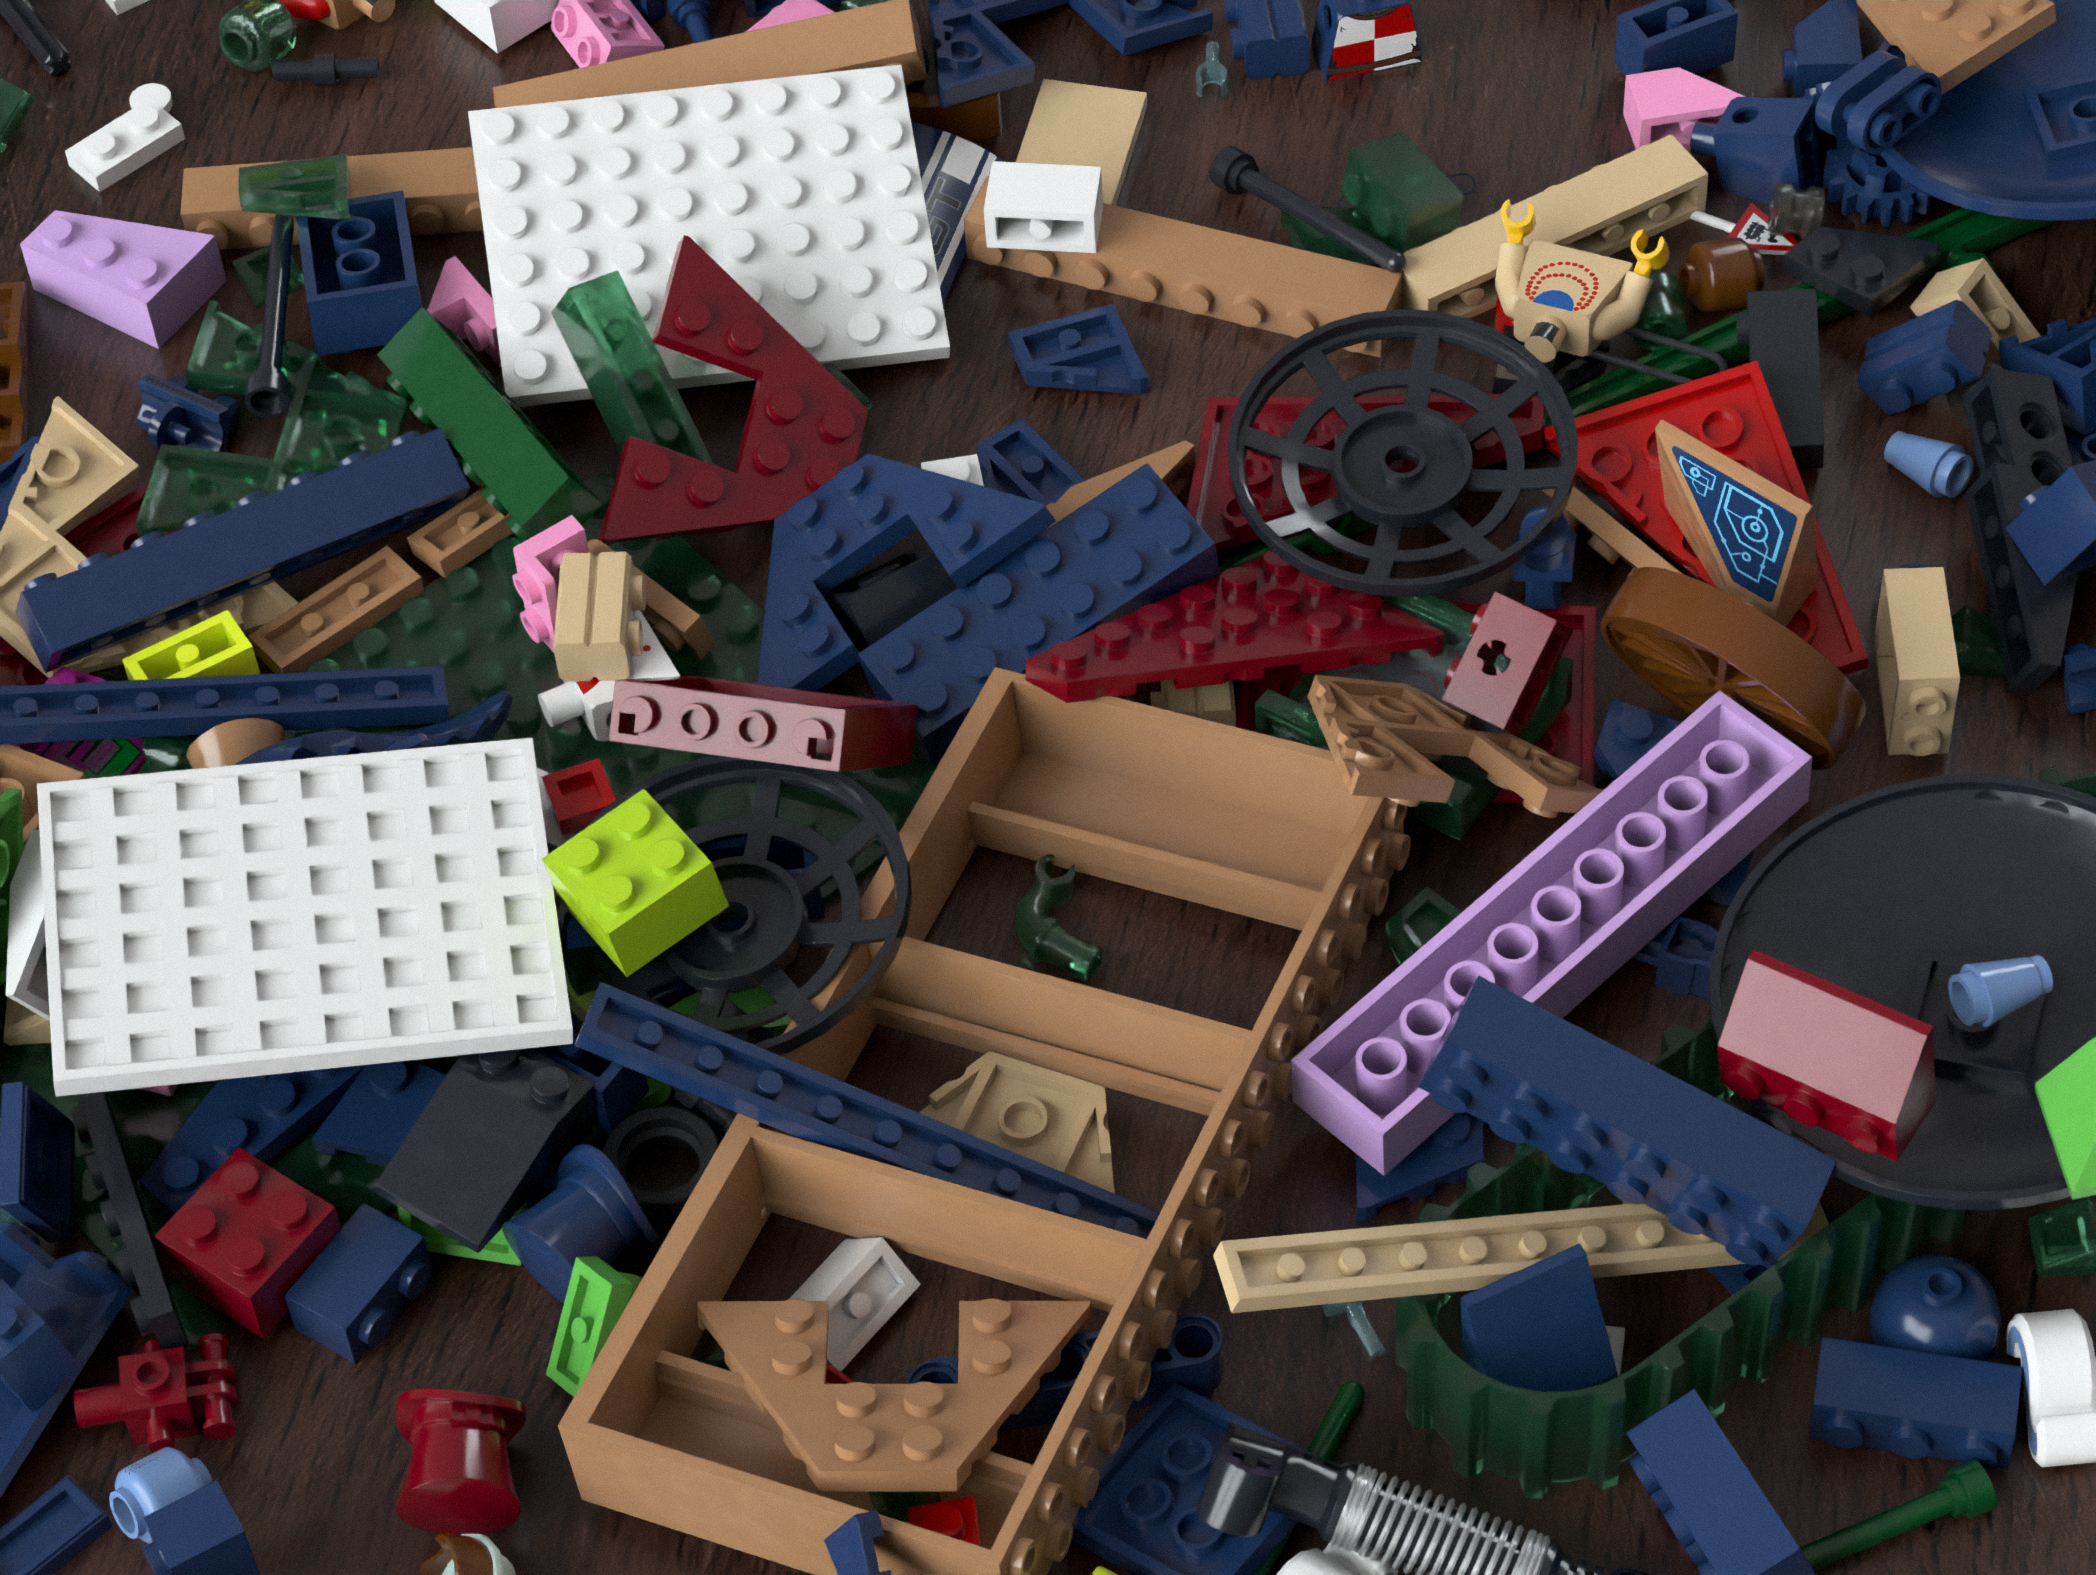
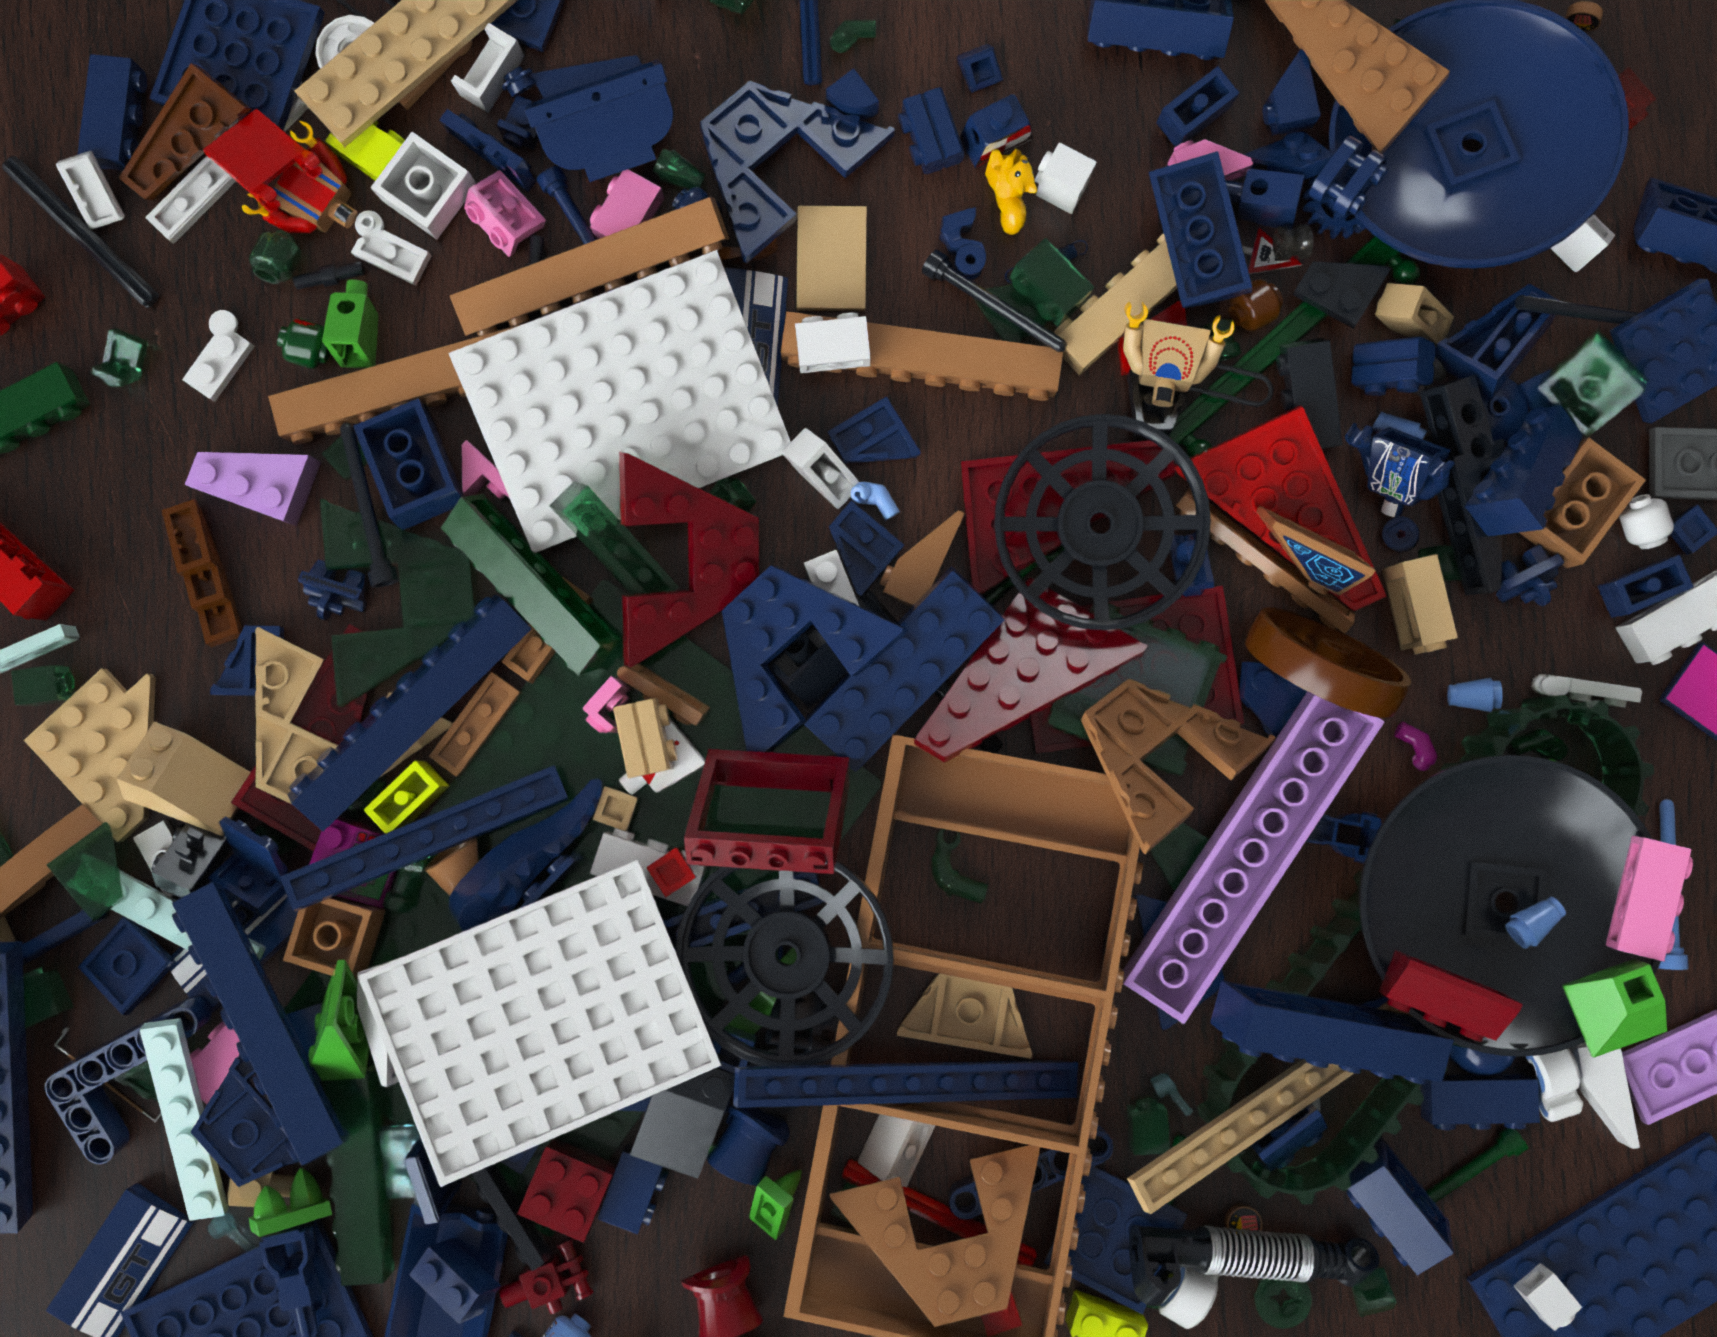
camera: 15 degrees left, 35 degrees up
(260, 129) = (303, 343): none -> dark green head
(298, 187) = (352, 413): clear green wing -> none
(336, 104) = (352, 327): none -> bright green torso
(424, 52) = (388, 250): none -> white hinge
(521, 722) = (615, 808): none -> tan plate
(635, 882) = (731, 966): lime brick -> none
(987, 374) = (821, 467): none -> white slope
(1061, 427) = (875, 495): none -> light blue arm
(1211, 71) = (902, 173): clear light blue hand -> none
(1281, 144) = (969, 253): none -> dark blue leg
(1295, 1352) = (1148, 1127): none -> clear green brick
(1368, 86) = (1009, 179): none -> yellow animal
(1453, 83) = (1064, 177): none -> white brick
(1507, 696) = (1204, 658): brick -> none
(1646, 157) = (1200, 231): none -> dark blue slope
(1911, 479) = (1400, 466): none -> dark blue torso

